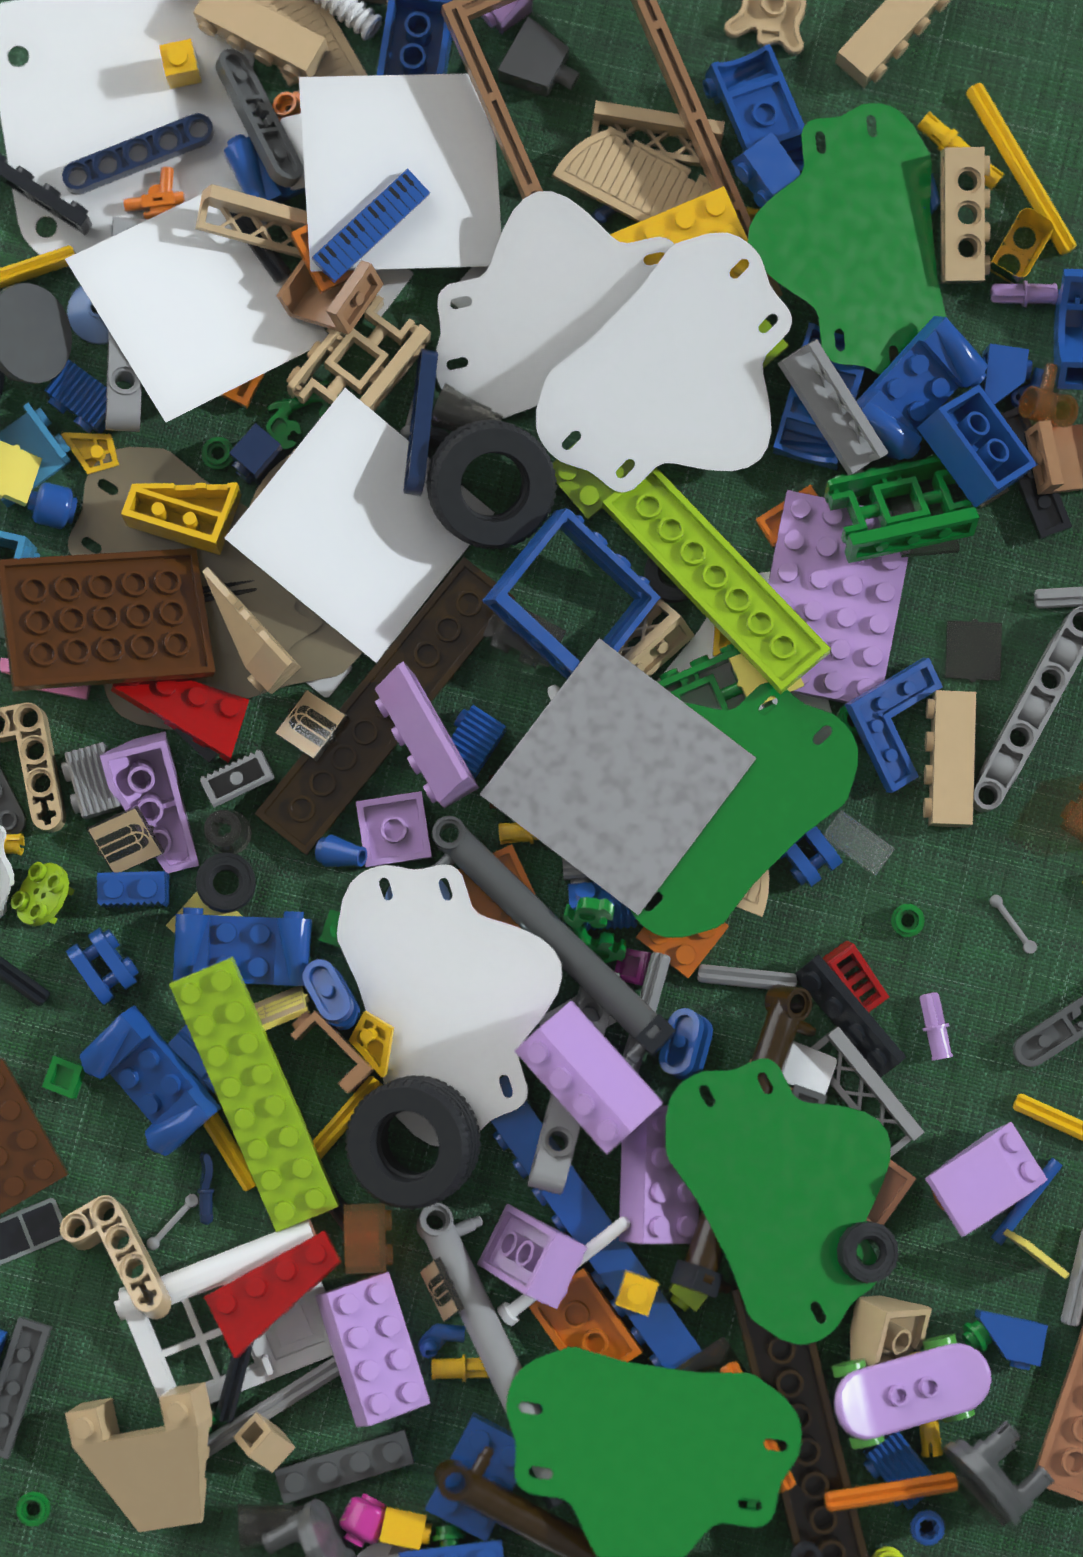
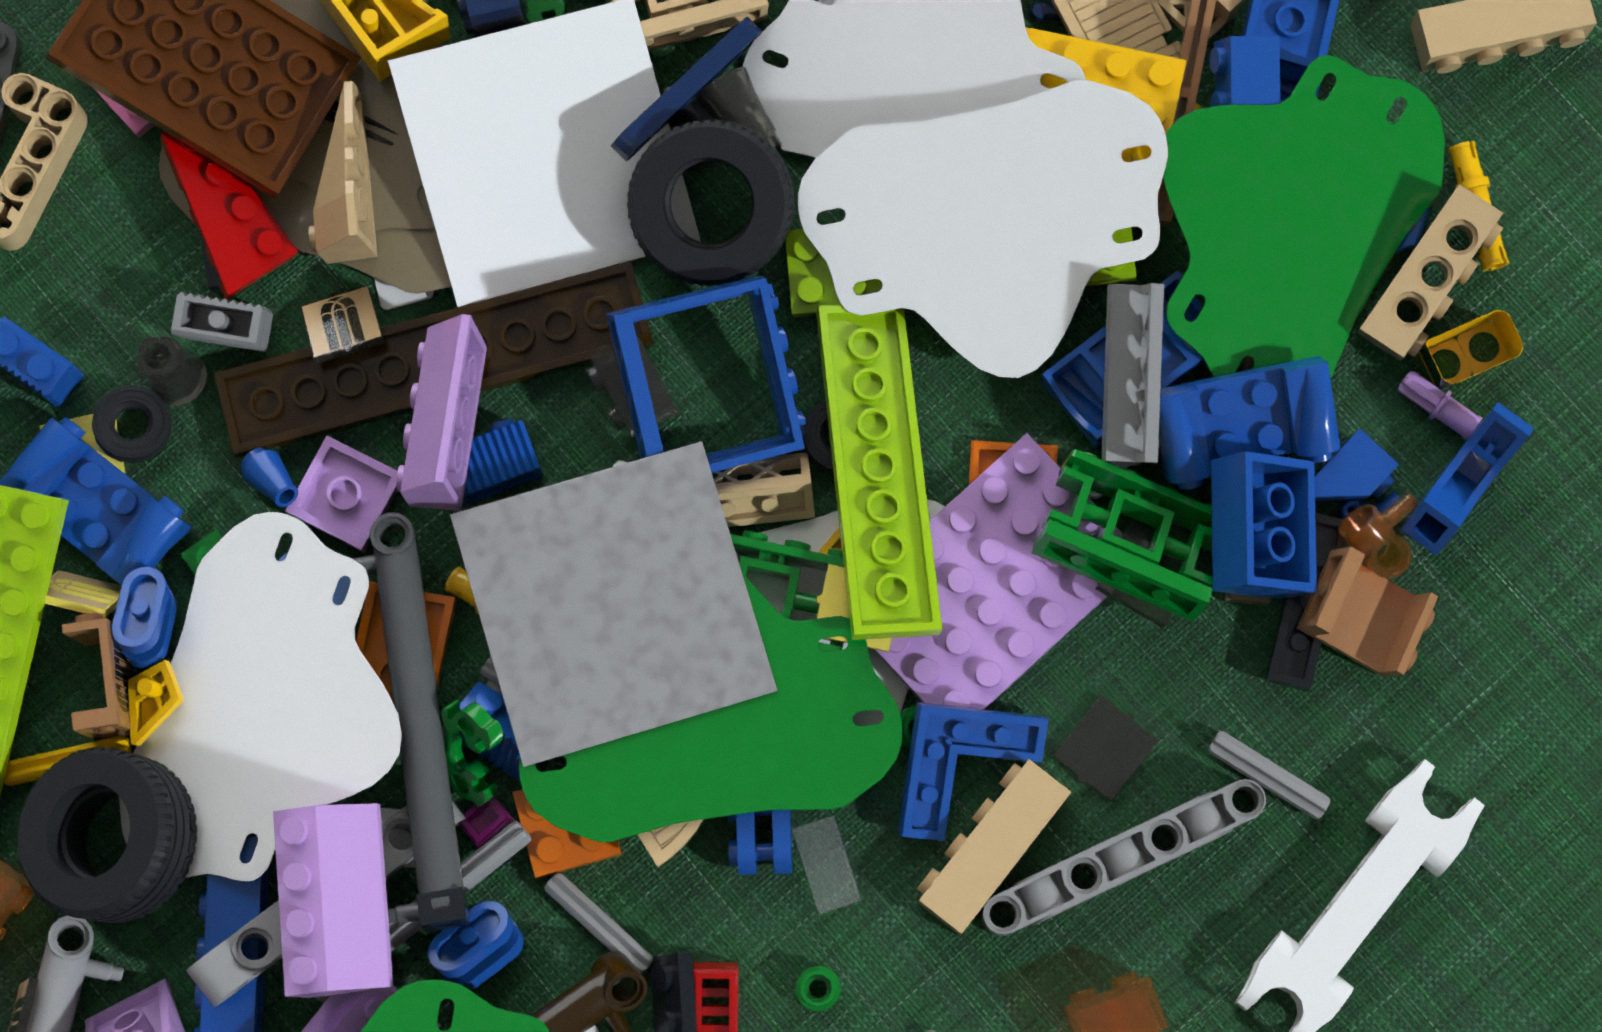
camera: 40 degrees right, 5 degrees down
(89, 782) = (77, 222): light grey brick -> none
(125, 840) = (62, 305): piece -> none
(146, 776) = (126, 272): lavender wedge -> none
(1019, 165) = (1532, 269): yellow axle -> none

